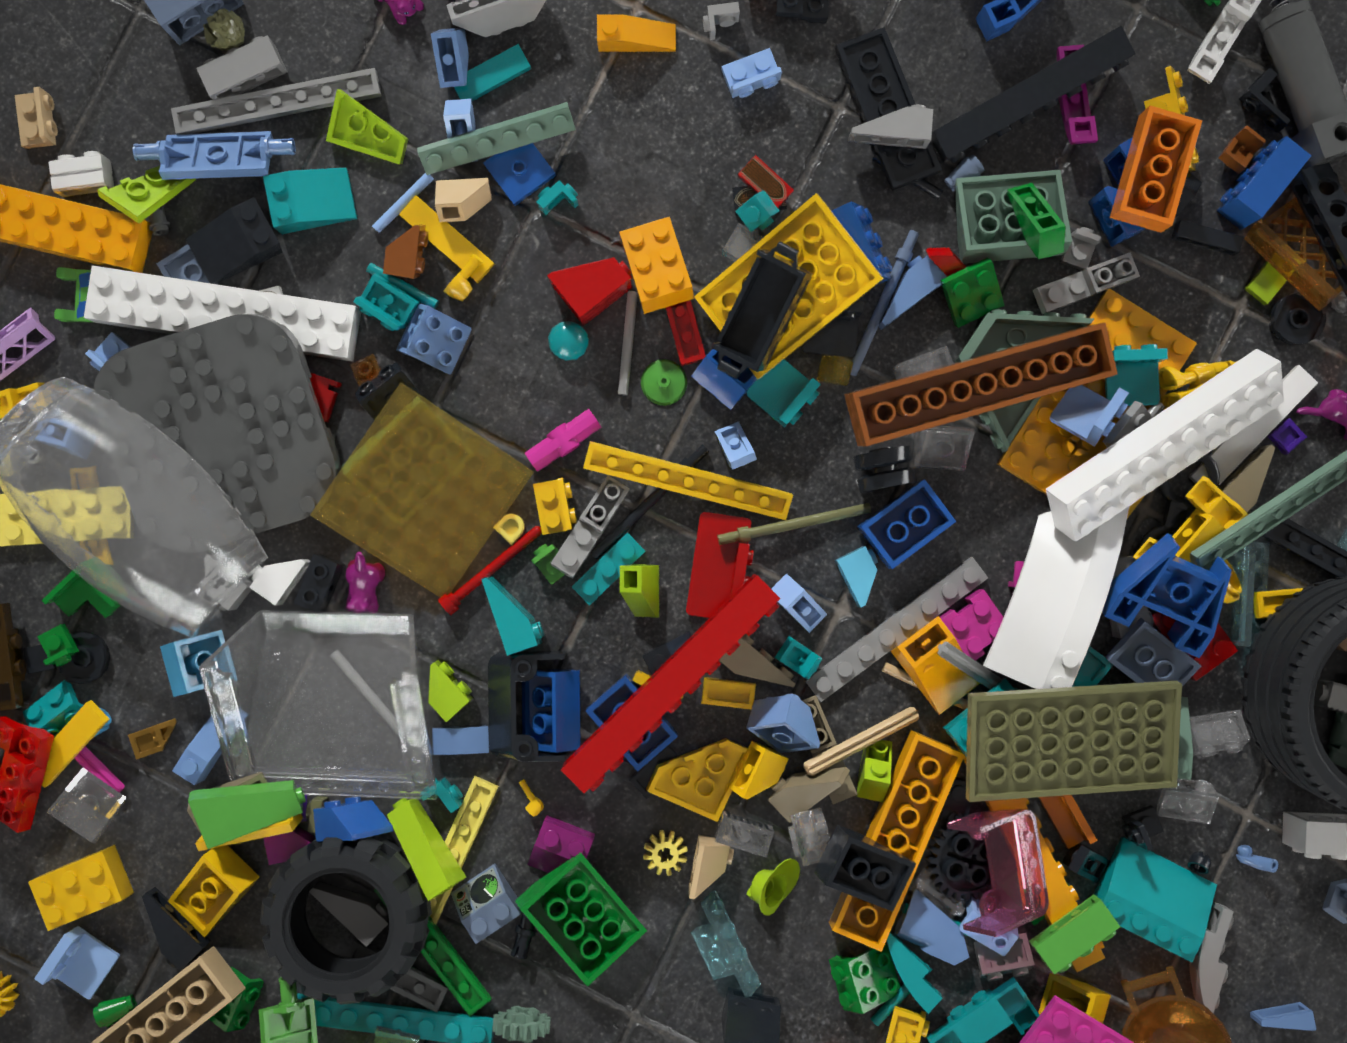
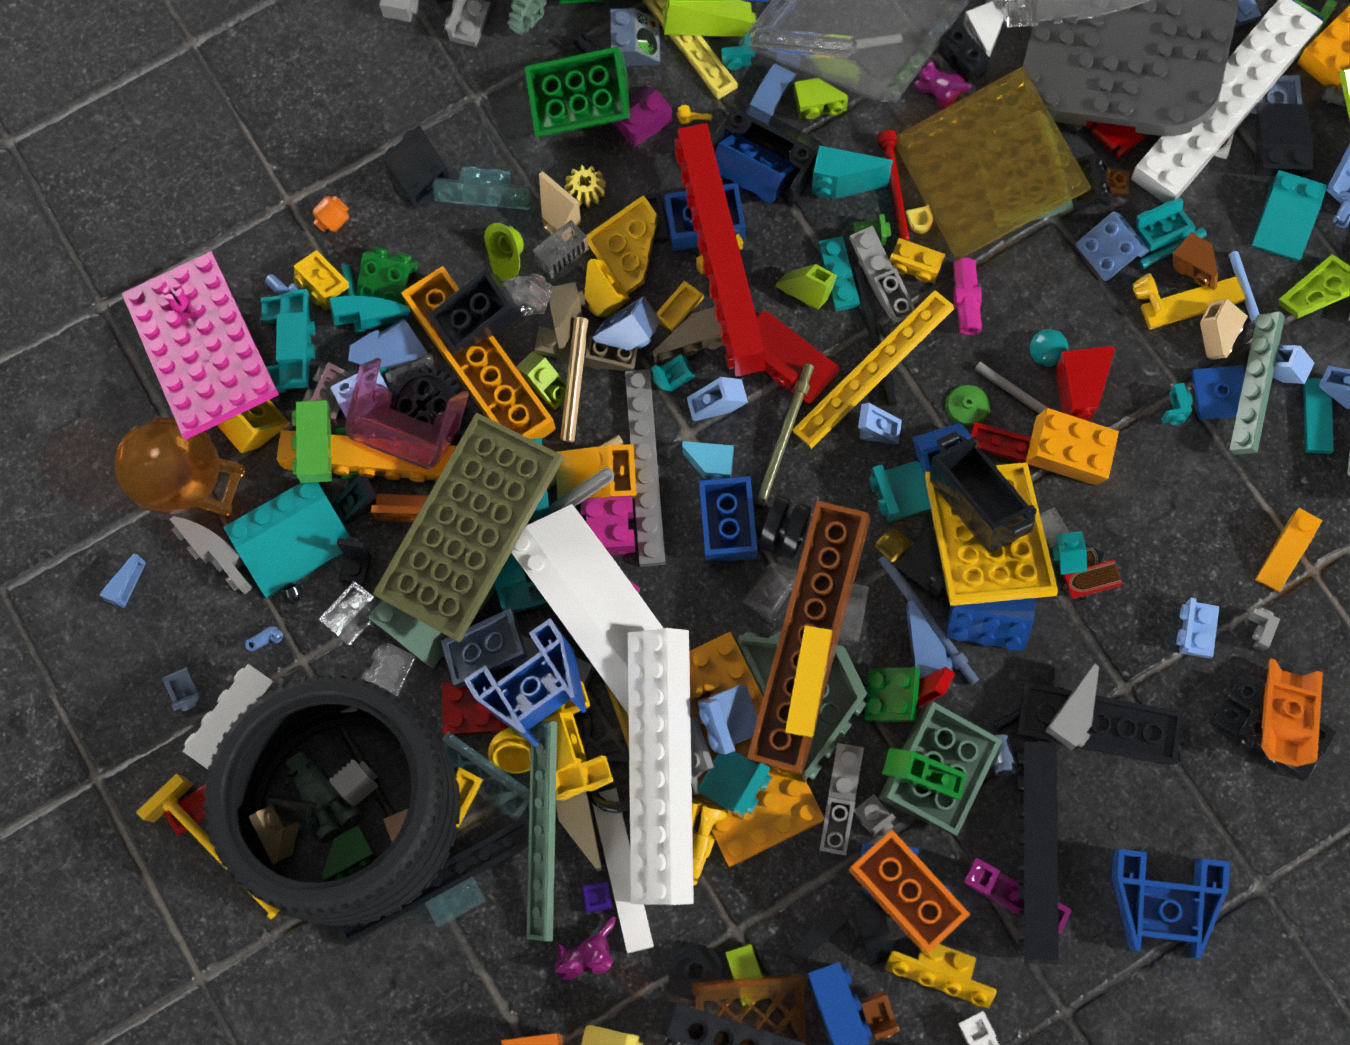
camera: 125 degrees right, 15 degrees down
(1028, 357) = (808, 681): none -> yellow tile

